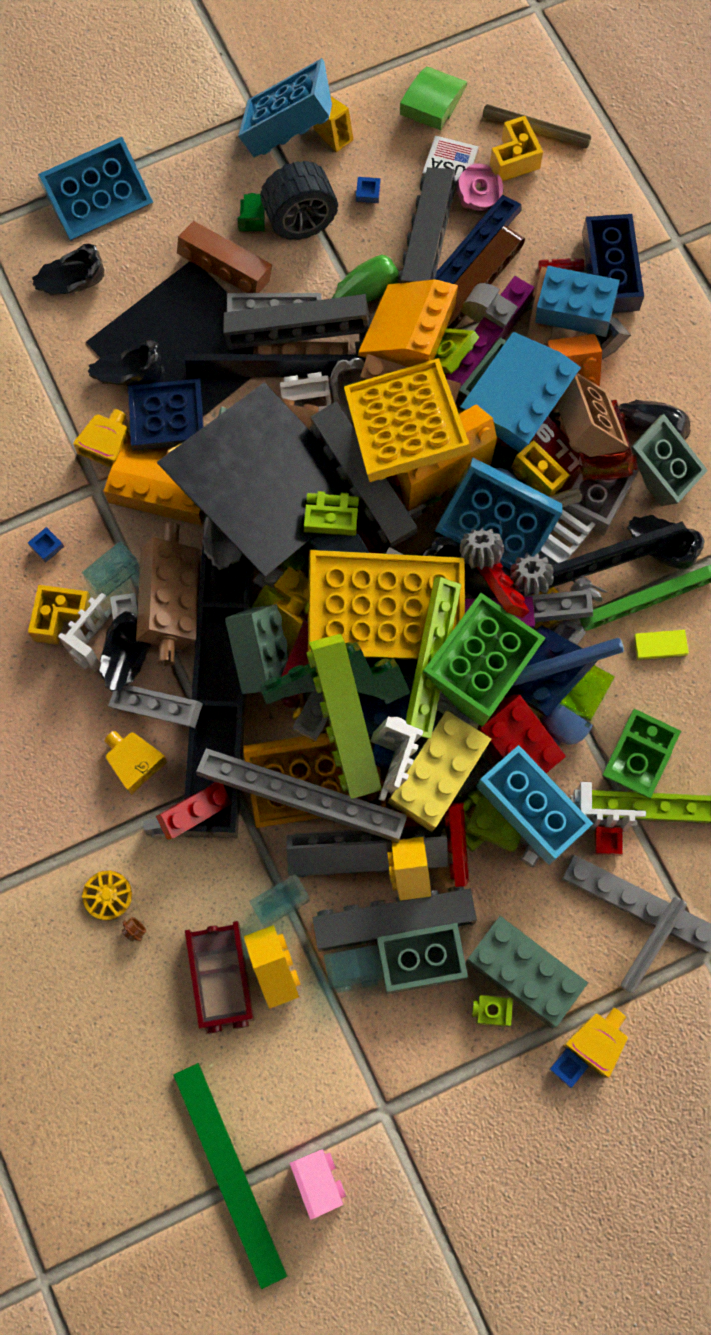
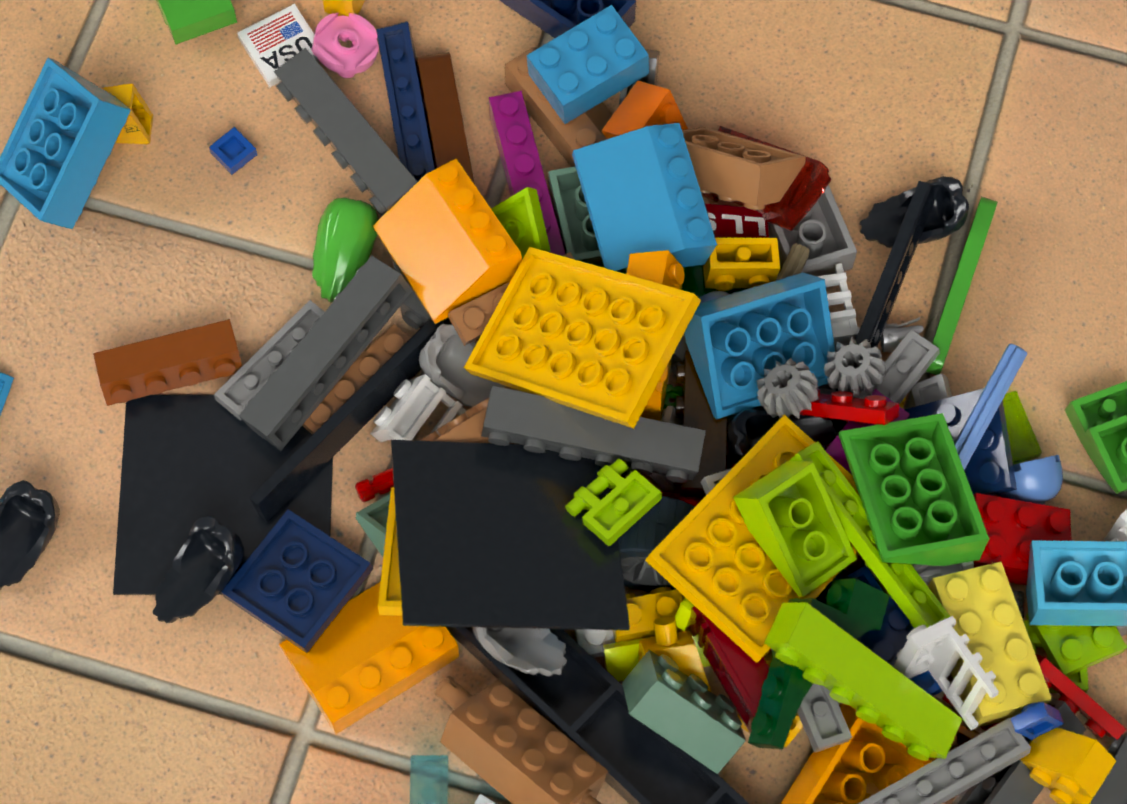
camera: 50 degrees left, 5 degrees down
(103, 438) = (261, 672): yellow torso -> none
(251, 213) = (140, 286): green window -> none
(299, 200) = (186, 226): black wheel -> none
(400, 612) = (796, 525): none -> lime slope
(416, 829) = (1036, 720): none -> blue plate
(487, 303) = (497, 148): light grey brick -> none
(575, 265) = (511, 46): red axle -> none
(642, 414) = (777, 110): black hair -> none
(661, 644) = (1019, 317): neon yellow tile -> none
(667, 462) = (844, 139): sand green slope -> none

